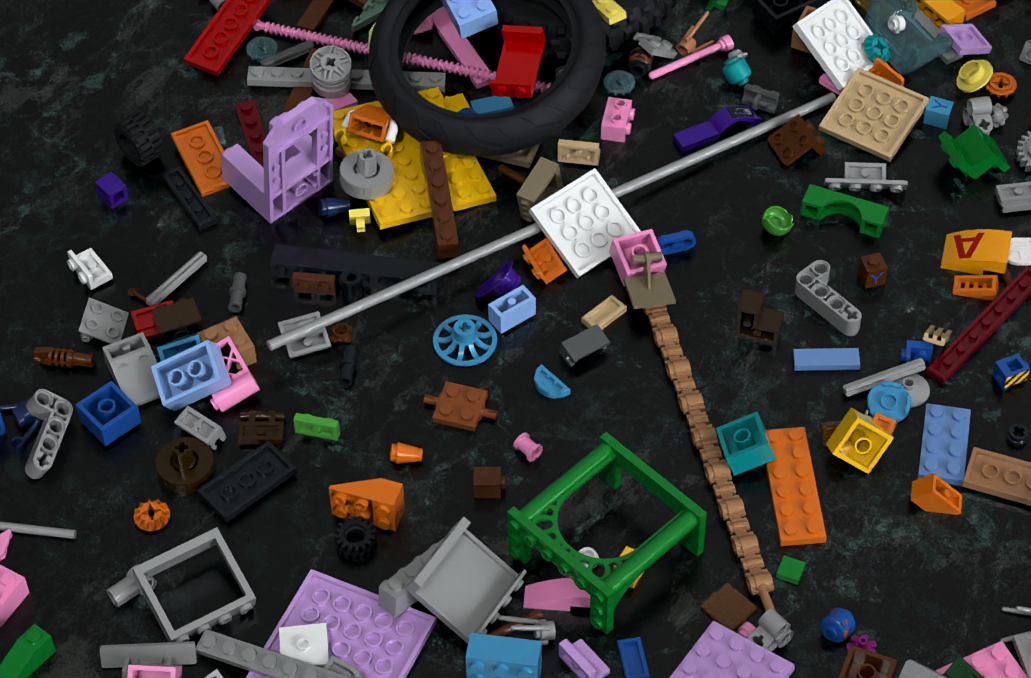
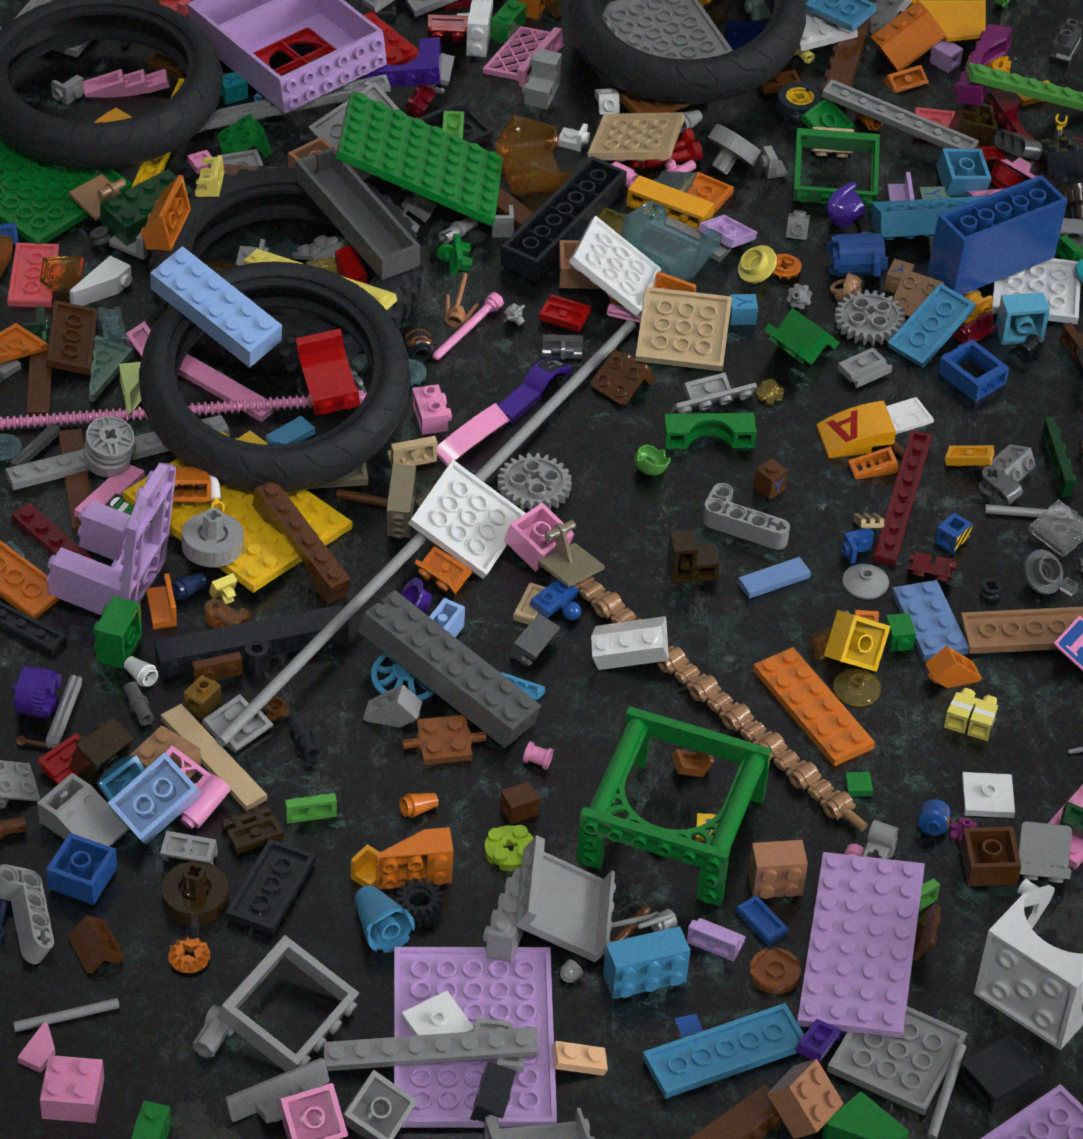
camera: 30 degrees left, 5 degrees down
(86, 478) = (94, 943): none -> reddish brown panel
(160, 255) = (36, 692): none -> dark purple piece
(251, 228) = (117, 631): none -> green brick
(255, 266) = (141, 671): none -> white cone
(270, 361) = (214, 757): none -> tan tile
(289, 303) = (202, 697): none -> pearl gold brick
(305, 216) = (162, 605): none -> orange panel
(313, 542) = (382, 919): none -> dark azure cone
(322, 489) = (364, 866): none -> light orange panel
(344, 241) = (220, 615): none -> clear orange leg
(434, 365) = (393, 707): none -> light grey slope
(441, 645) = (570, 971): none -> light grey hinge
(458, 507) = (507, 836): none -> lime plate
(491, 347) = (449, 668): none -> dark grey piece
(555, 595) = (656, 883): bright pink slope -> none
(623, 315) = (555, 597): none -> blue plate
(638, 150) = (471, 434): none -> bright pink slope
(649, 501) = (692, 762): none -> dark orange bracket
(655, 46) = (430, 324): light grey plate -> none
(659, 375) = (630, 643): none -> white slope
(666, 209) = (534, 482): none -> light grey gear
(666, 621) = (777, 869): none -> nougat brick
(676, 242) = (567, 508): blue plate -> none
(728, 607) = (821, 837): clear orange piece -> none
(736, 70) = (523, 325): teal head -> none
(745, 443) = (752, 678): teal brick -> none
(781, 70) = (564, 313): none -> red plate
(842, 489) = (857, 687): none -> clear yellow dish
(873, 52) = (655, 265): teal gear -> none
(888, 375) = (840, 576): light grey axle -> none
(889, 400) = (857, 594): dark azure tile -> none
(896, 24) = (654, 234): white plate -> none
(902, 621) = (988, 795): none -> white plate
(907, 446) = (901, 633): none -> green brick
(921, 192) = (770, 390): none -> clear yellow plant
(929, 543) = (978, 711): none -> light yellow hips
(978, 113) = (784, 298): light grey piece -> none
(979, 400) = (922, 565): none -> dark red hinge

